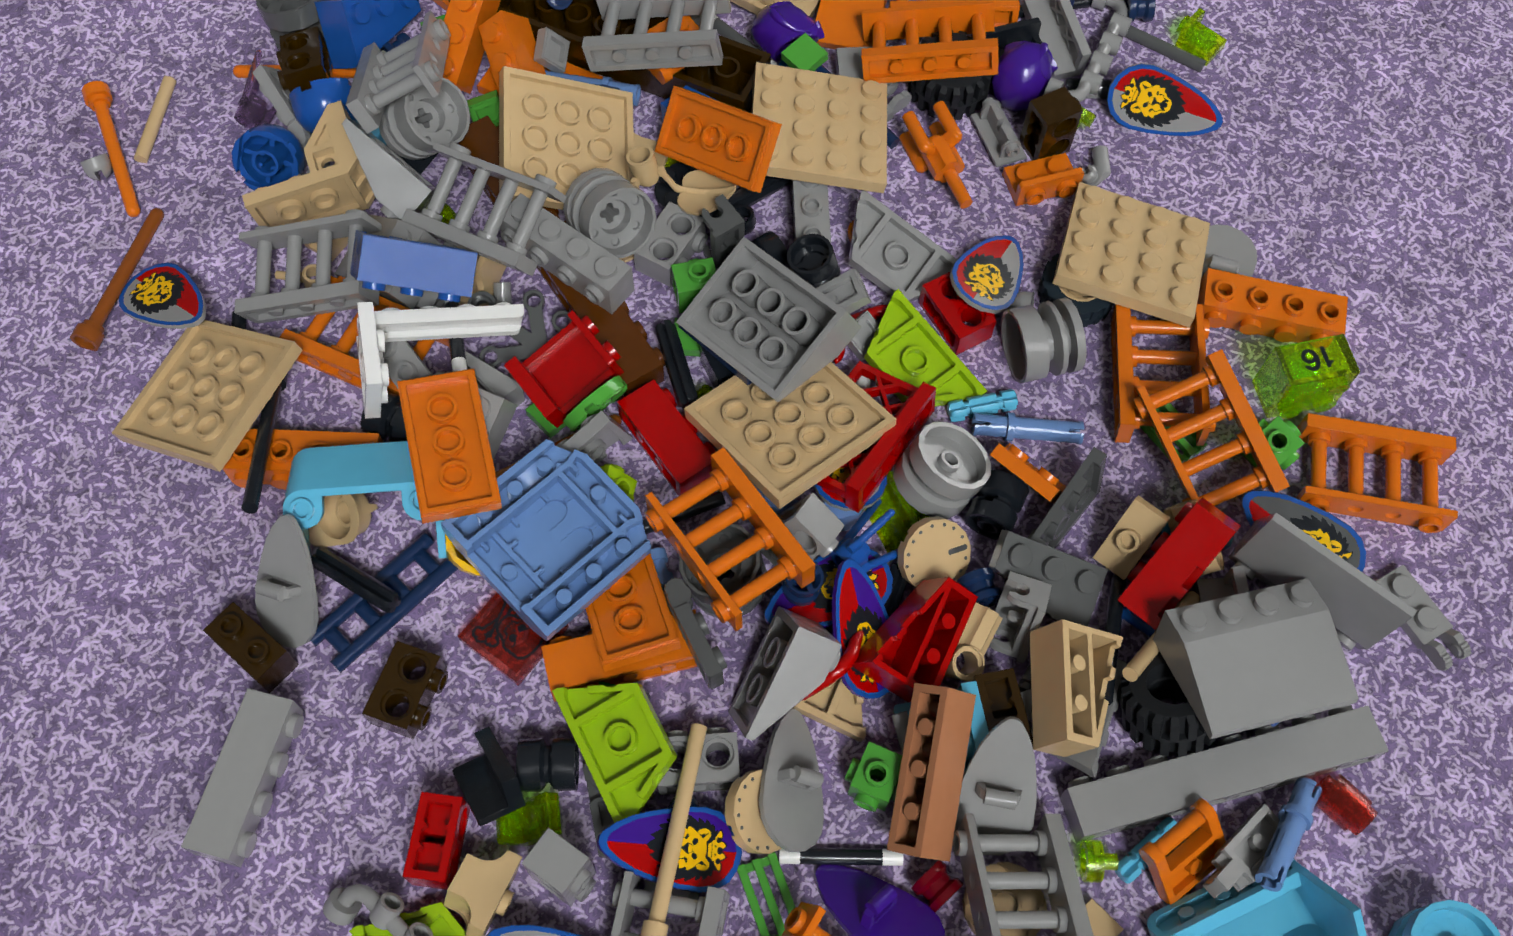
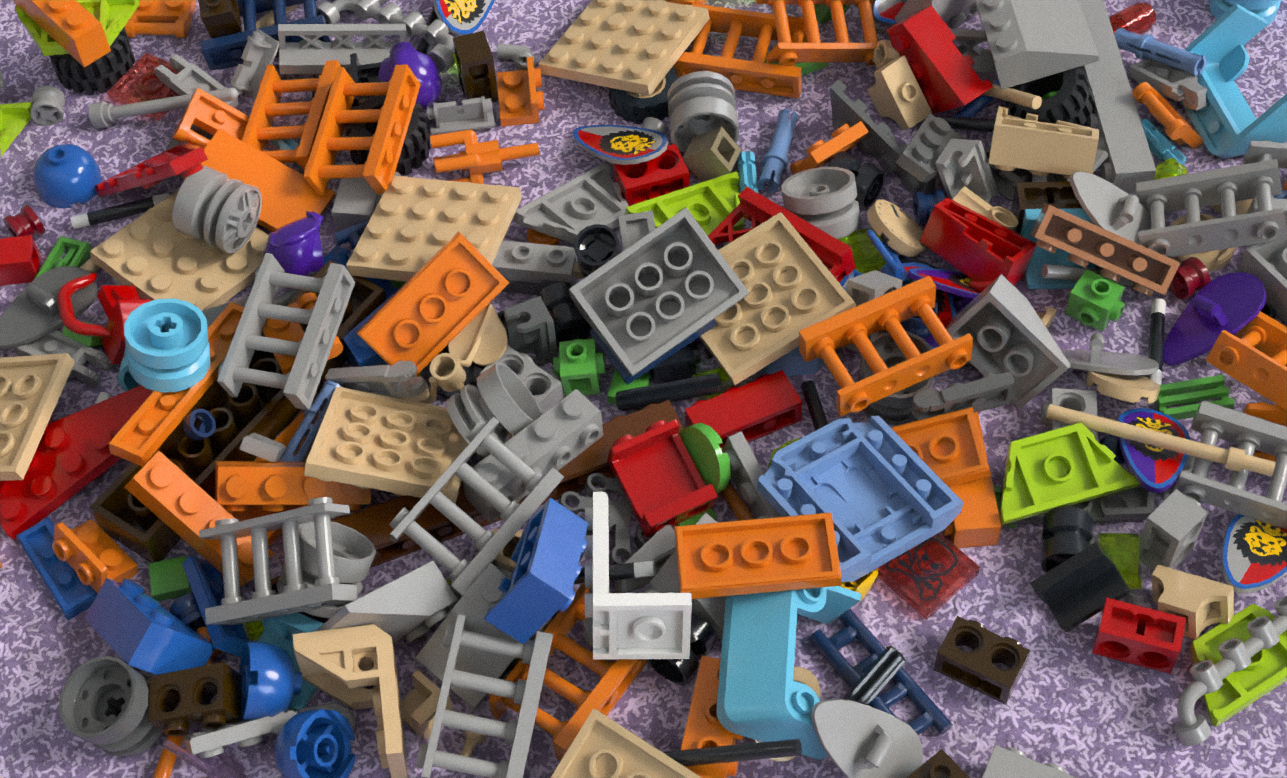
camera: 75 degrees left, 10 degrees down
(648, 117) = (385, 380): none -> light grey hinge
(804, 54) = (342, 231): bright green tile -> none
(995, 359) = (711, 154): none -> dark tan brick

